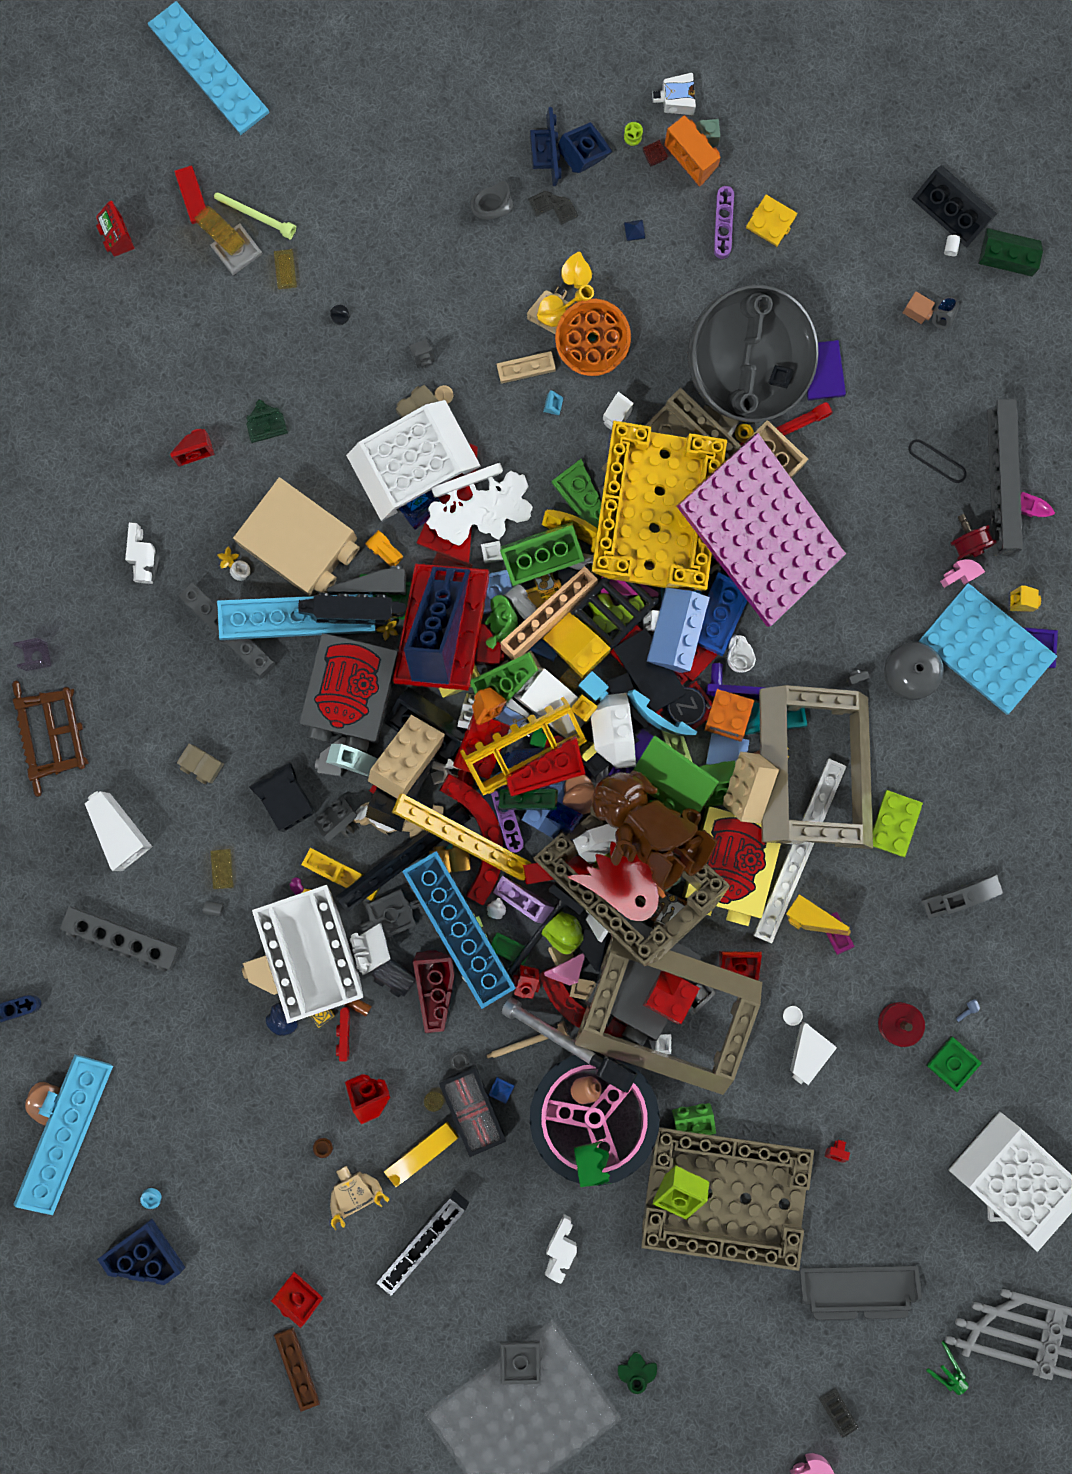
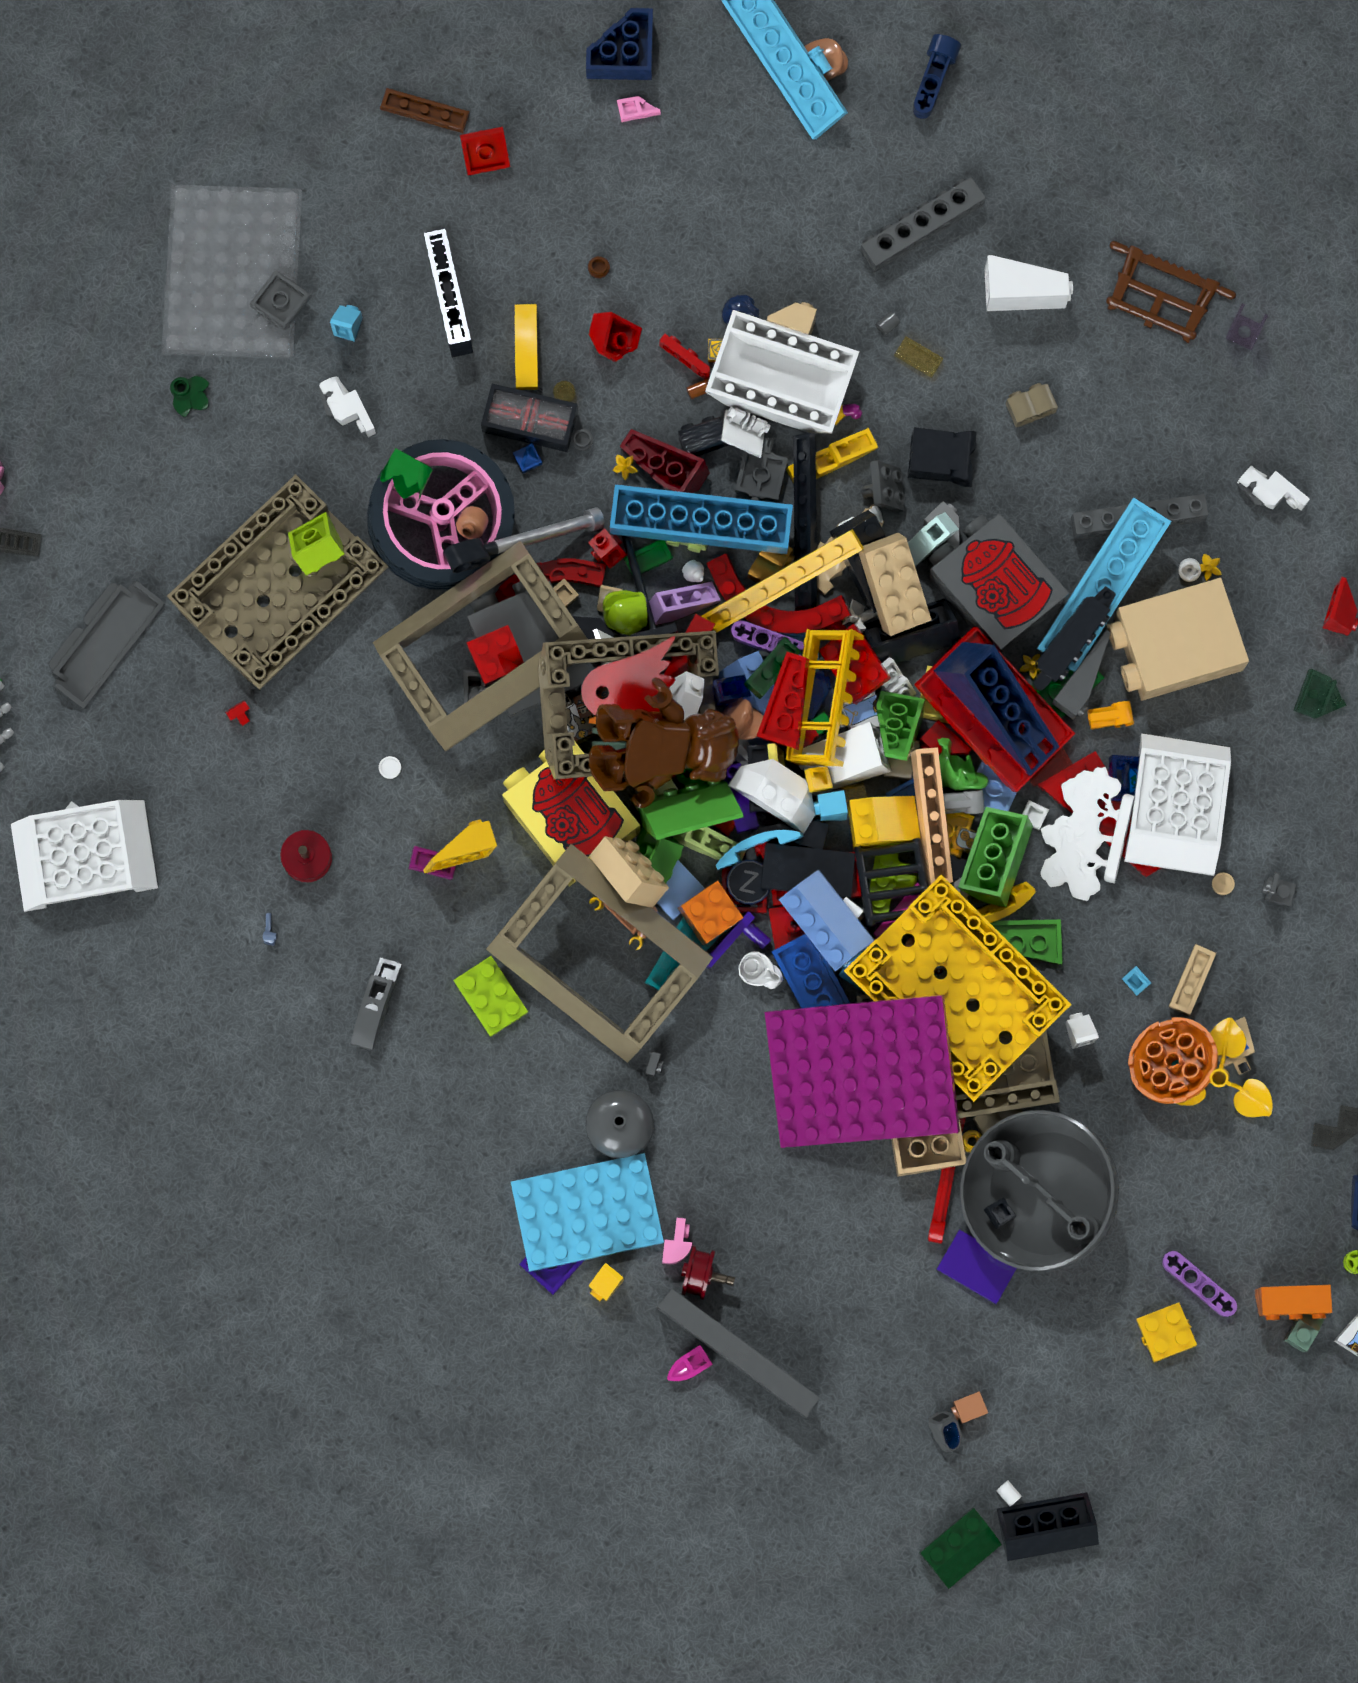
camera: 130 degrees right, 5 degrees down
(150, 1198) = (669, 91): medium azure tile -> none
(182, 1213) = (635, 108): none -> bright pink tile
(353, 1194) = (537, 263): tan torso -> none
(419, 397) = (1231, 853): dark tan brick -> none
(457, 1016) = (625, 466): none -> yellow plant
(487, 705) = (887, 693): orange slope -> none
(500, 1300) = (346, 322): none -> medium azure slope
(561, 1027) = (539, 548): tan piece -> none
(568, 971) = (588, 592): bright pink slope -> none
(634, 230) = (1255, 1190): dark blue slope -> none
(654, 153) = (1320, 1268): clear red plate -> none
(663, 1044) = (456, 629): white slope -> none
(695, 1119) = (367, 608): bright green bracket -> none
(741, 962) = (473, 753): red slope -> none
(798, 854) = (529, 878): white plate -> none
(810, 1054) = (344, 755): white slope -> none
(944, 456) = (806, 1319): black piece -> none
(953, 1064) = (232, 878): green plate -> none

